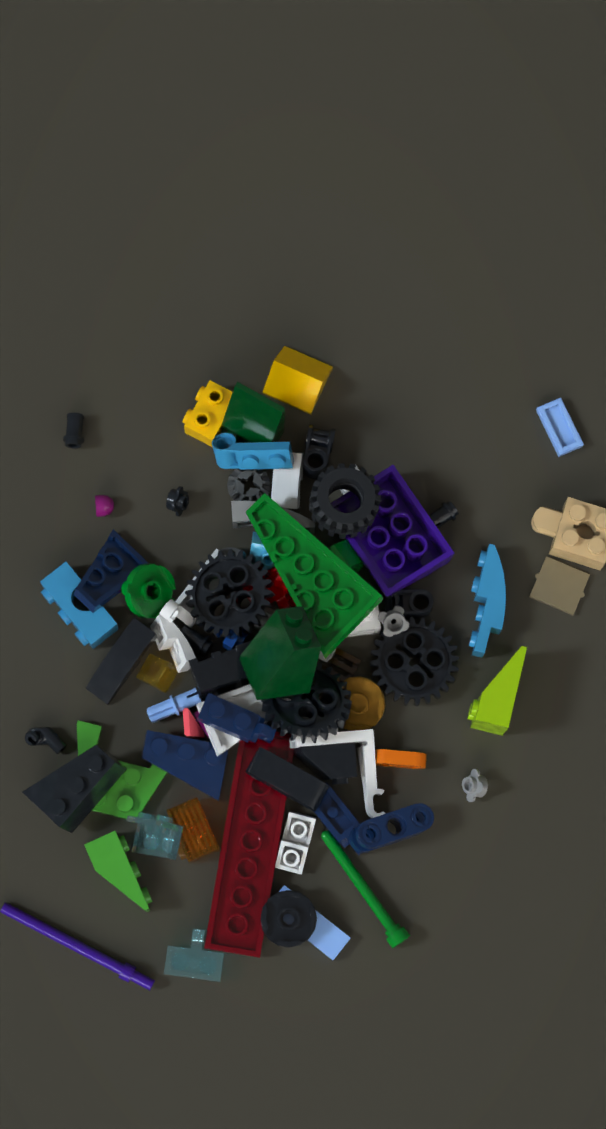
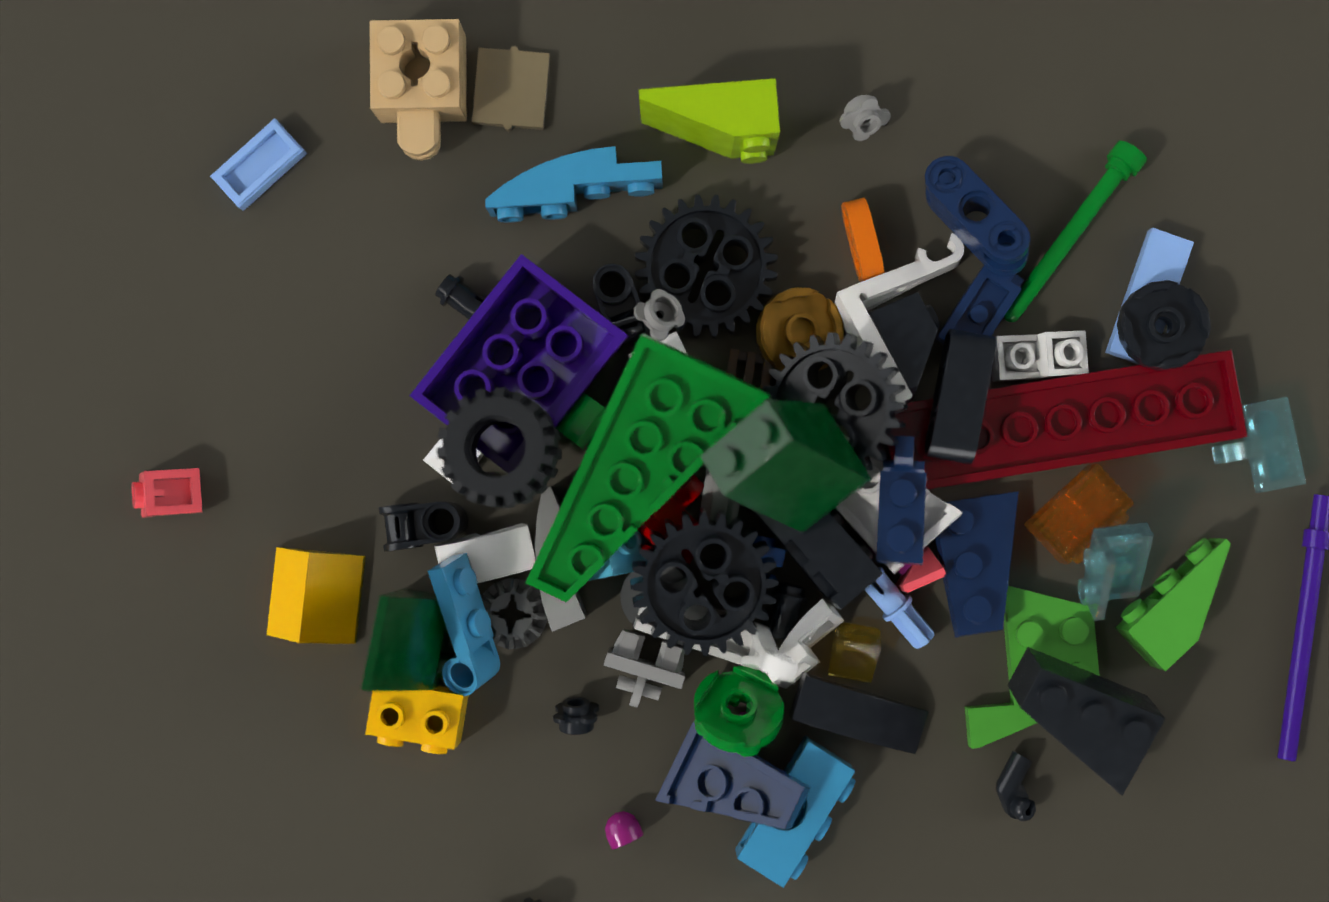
camera: 95 degrees left, 10 degrees up
(186, 558) = (626, 659): none -> light grey hips
(384, 317) = (167, 492): none -> coral bracket

